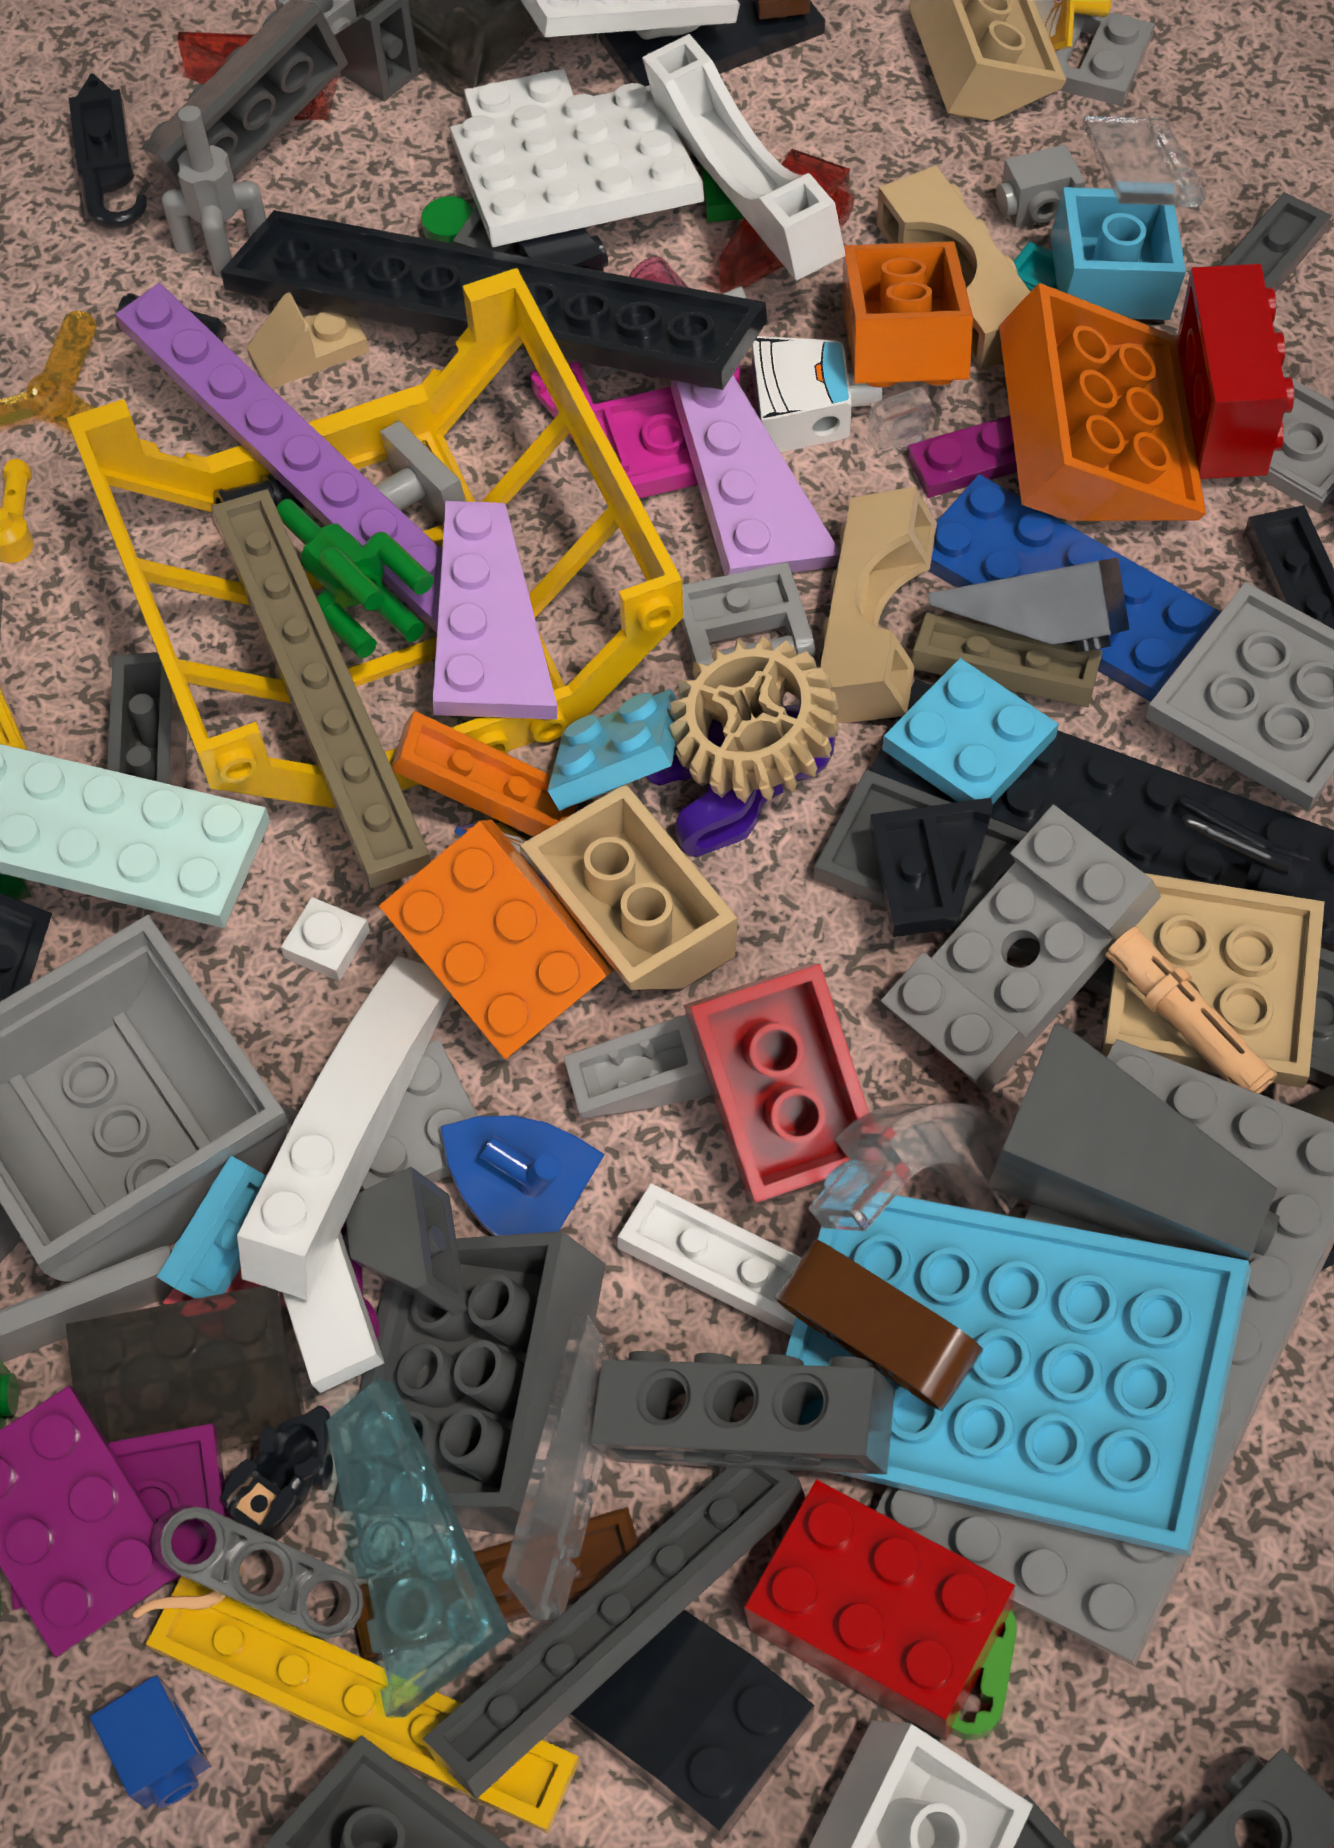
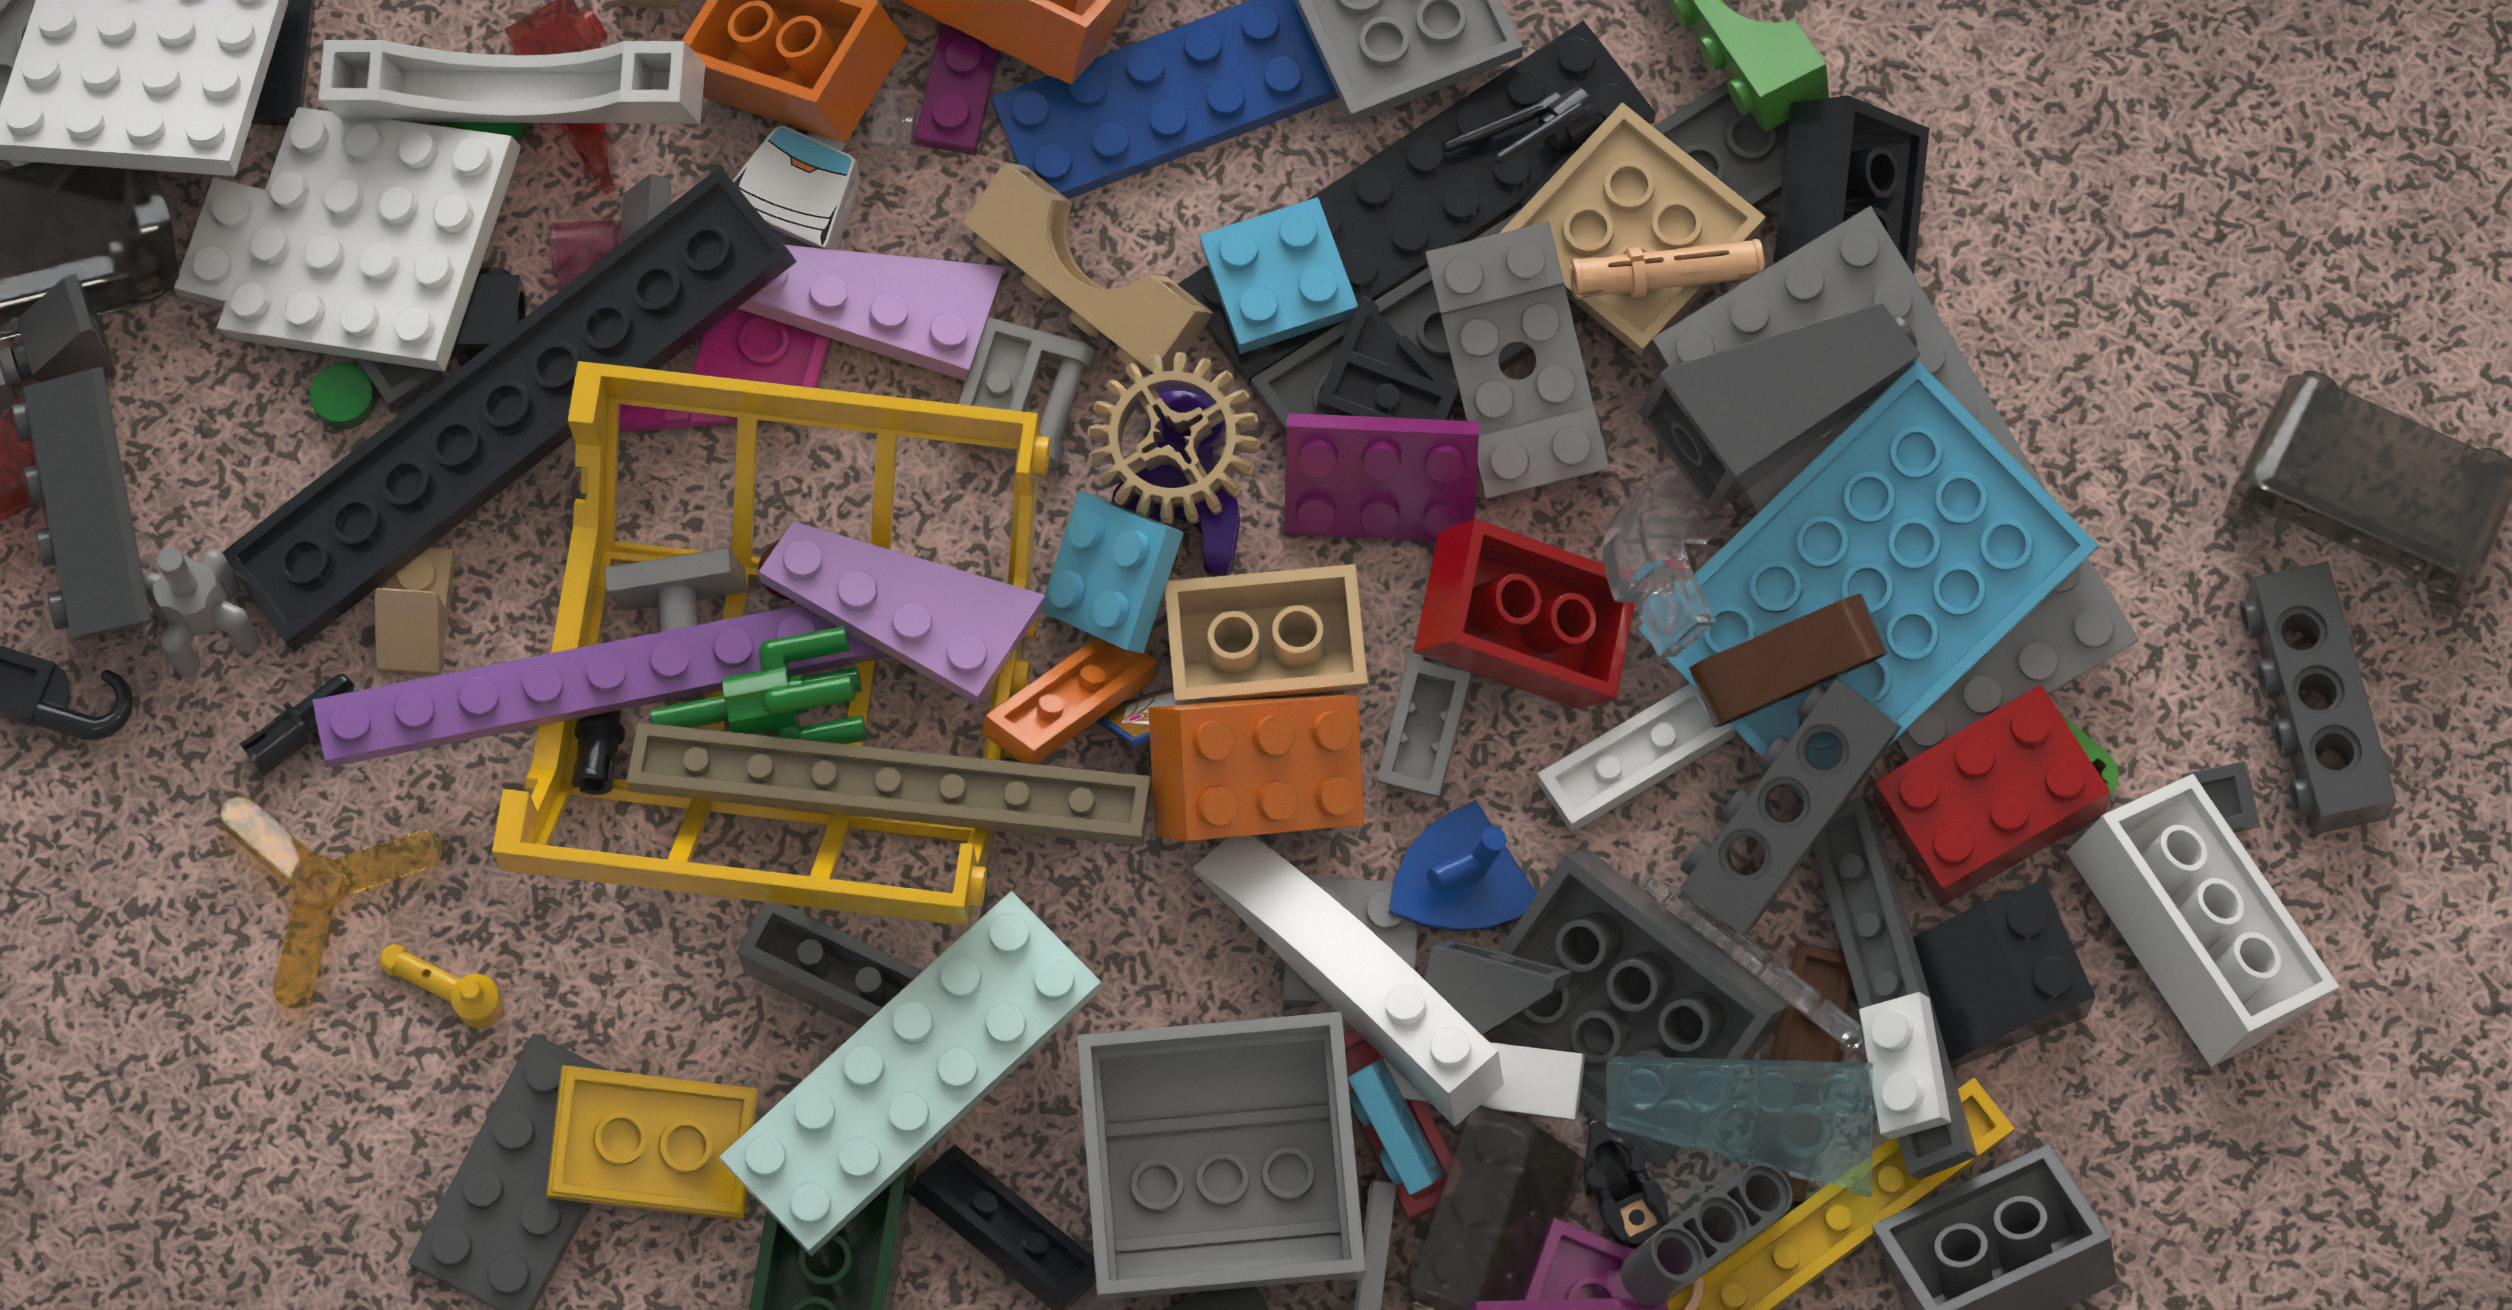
camera: 60 degrees left, 10 degrees up
(325, 939) = (1125, 922): white plate -> none
(530, 1669) = (1905, 1065): none -> white plate
(841, 905) = (1378, 476): none -> magenta plate
(1008, 659) = (1208, 196): dark tan plate -> none
(1052, 606) = (1189, 132): slope -> none

